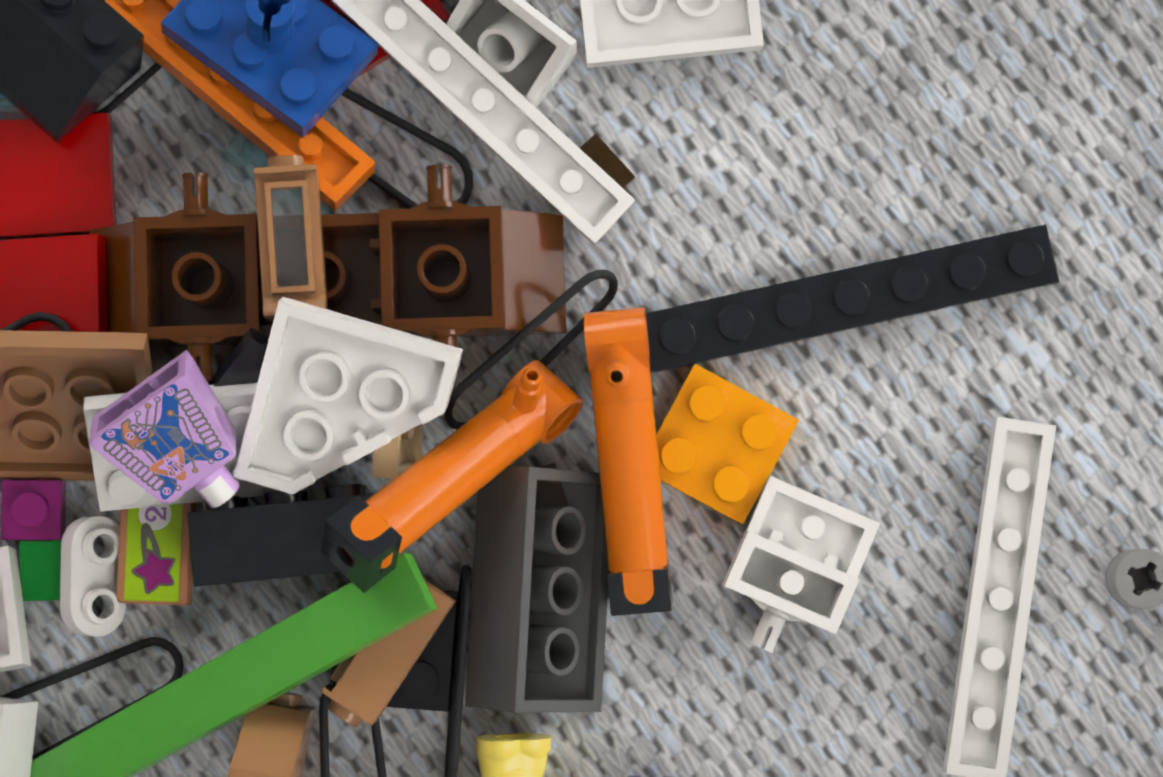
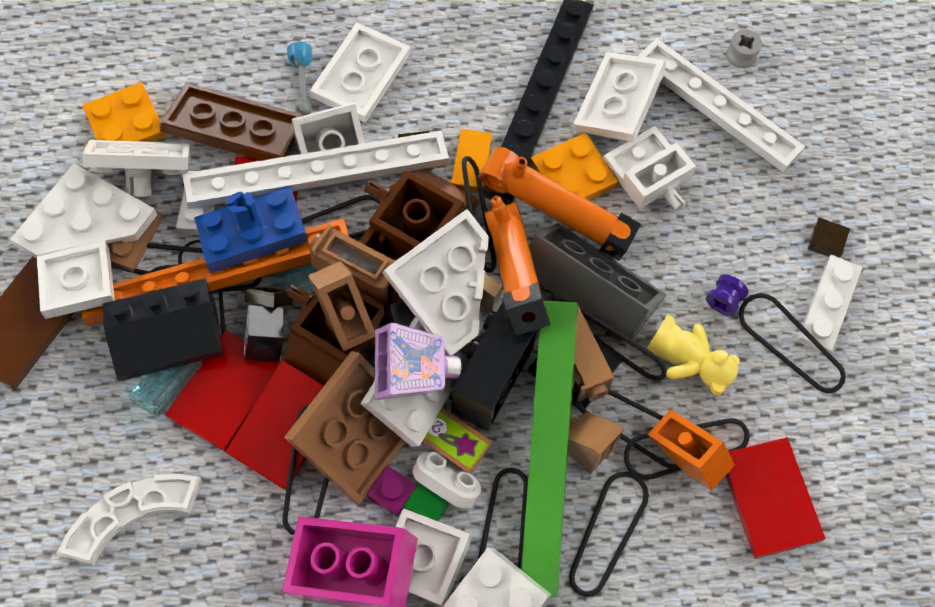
camera: 60 degrees left, 20 degrees down
(126, 175) = (263, 333): none -> black brick
(190, 139) = (267, 297): none -> dark brown tile
(200, 271) = (342, 305): none -> medium nougat slope
(642, 270) = (477, 146): none -> light orange tile
(898, 435) = (620, 96): none -> white plate

